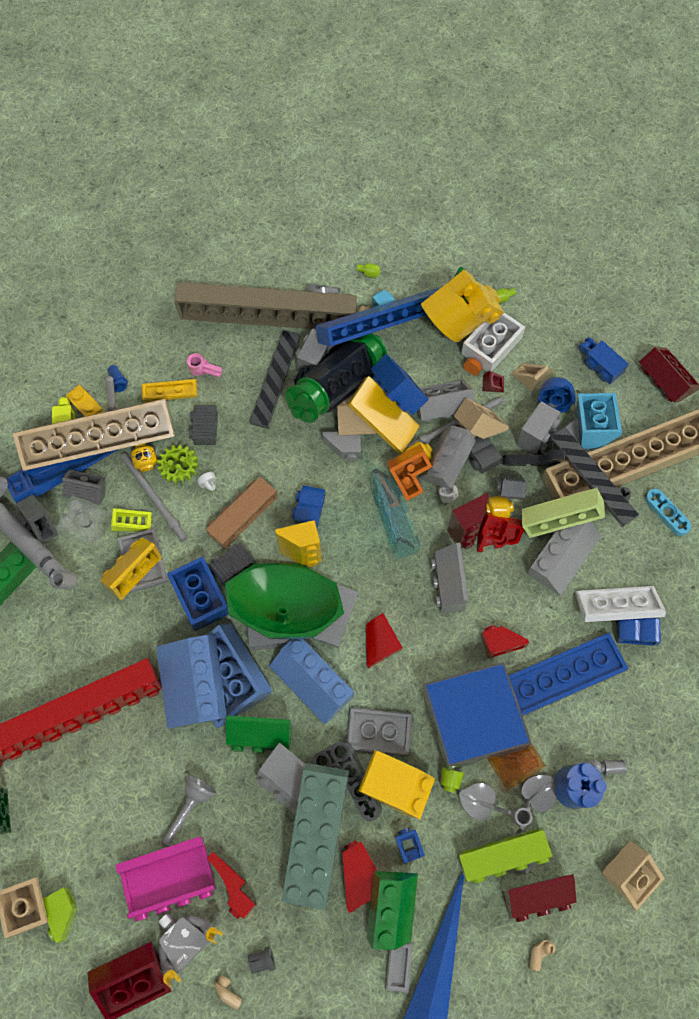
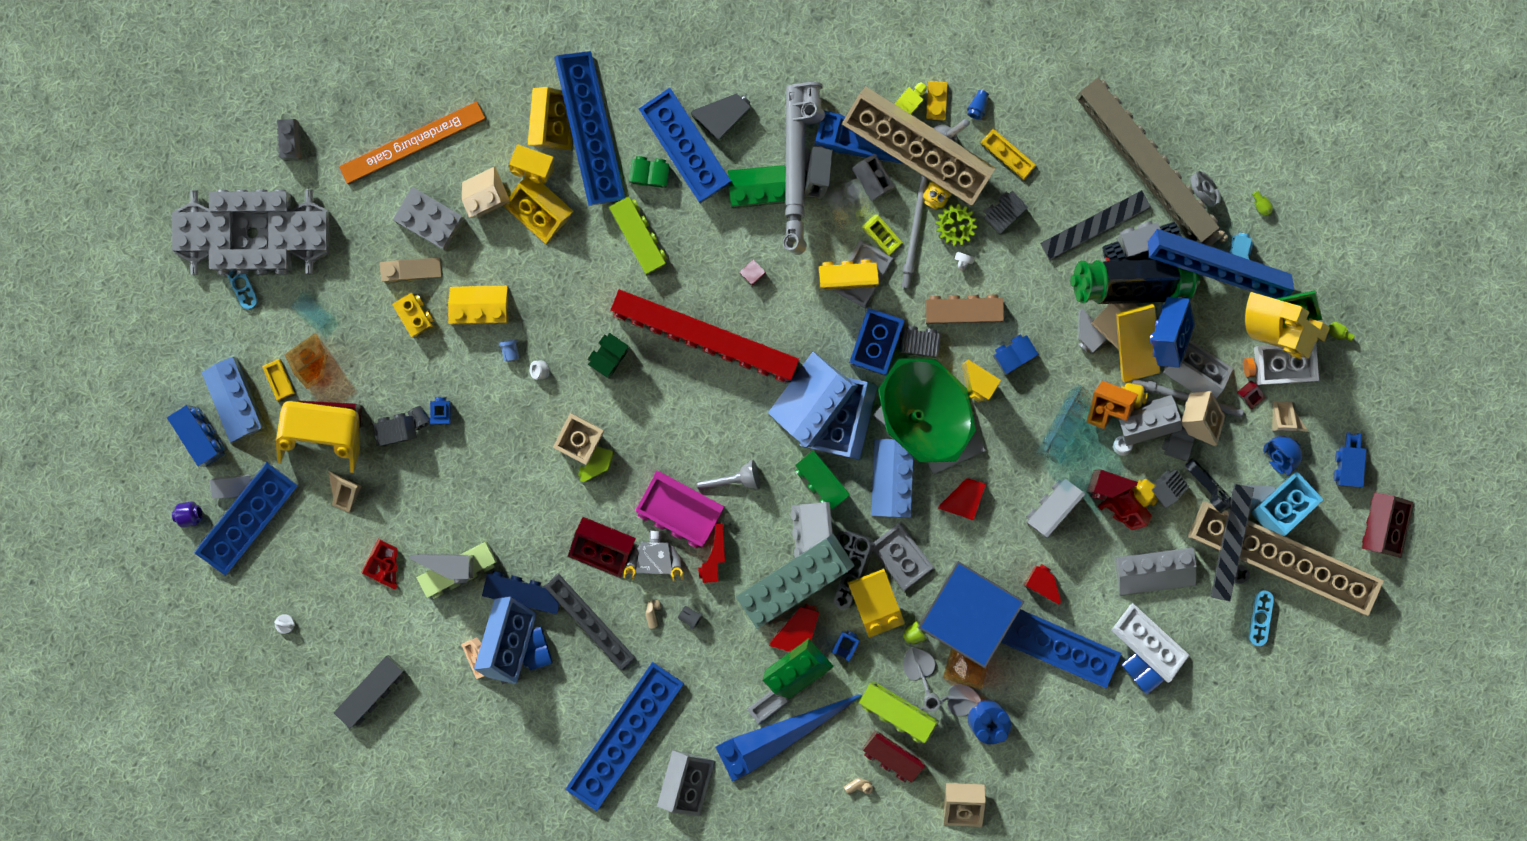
camera: 50 degrees right, 20 degrees up
(56, 638) = (752, 272): none -> slope
(203, 367) = (1051, 164): bright pink axle -> none
(539, 428) = (1238, 467): light grey brick -> none
(563, 513) = (1180, 545): yellowish green brick -> none
(610, 767) = (1022, 731): light grey pin -> none

